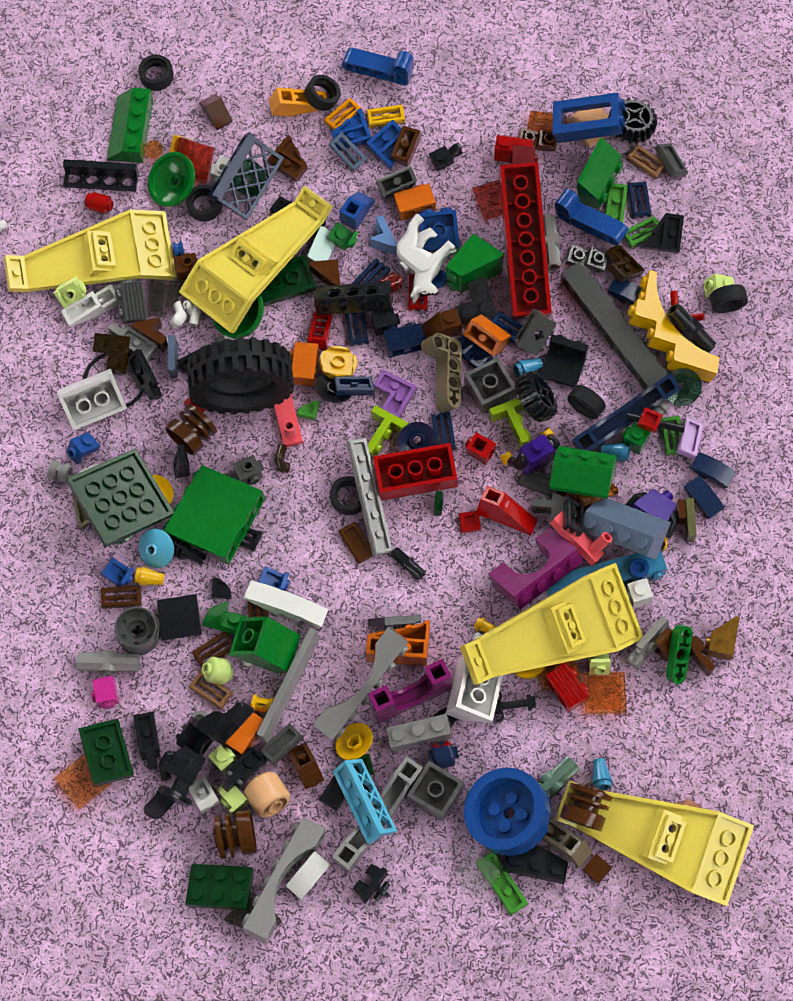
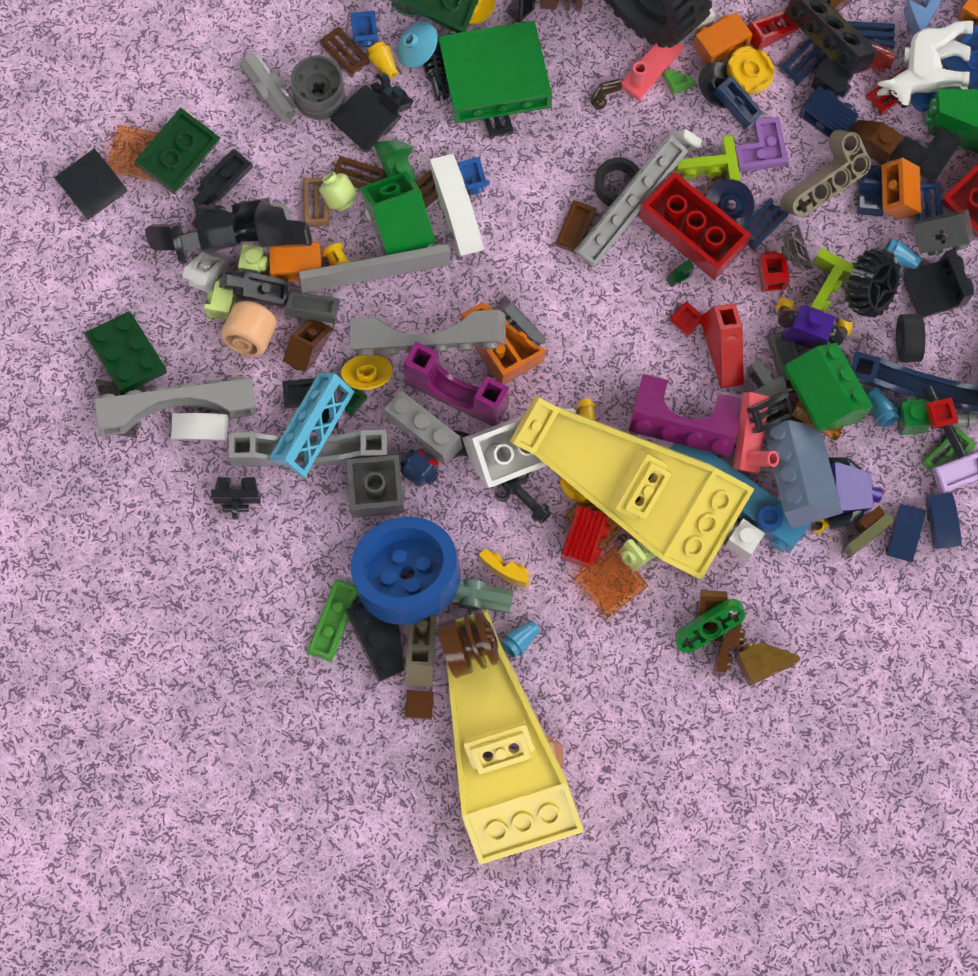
camera: 45 degrees right, 5 degrees up
(81, 826) = (91, 184): none -> black slope
(105, 692) = (237, 107): dark pink brick -> none
(178, 589) = (394, 96): none -> black plate
(220, 590) = (424, 136): black tile -> none
(235, 834) = (185, 327): reddish brown wheel -> none
(248, 470) = (566, 70): dark grey brick -> none
(350, 434) = (686, 137): none -> white tile
(407, 563) = (593, 291): black axle -> none
(476, 873) = (323, 587): clear piece -> none
(479, 425) = (795, 248): none -> clear smoke wing
(490, 385) = (848, 229): flat silver brick -> none
(556, 748) = (510, 573): none -> yellow slope
(646, 644) = (690, 586): light grey hinge -> none

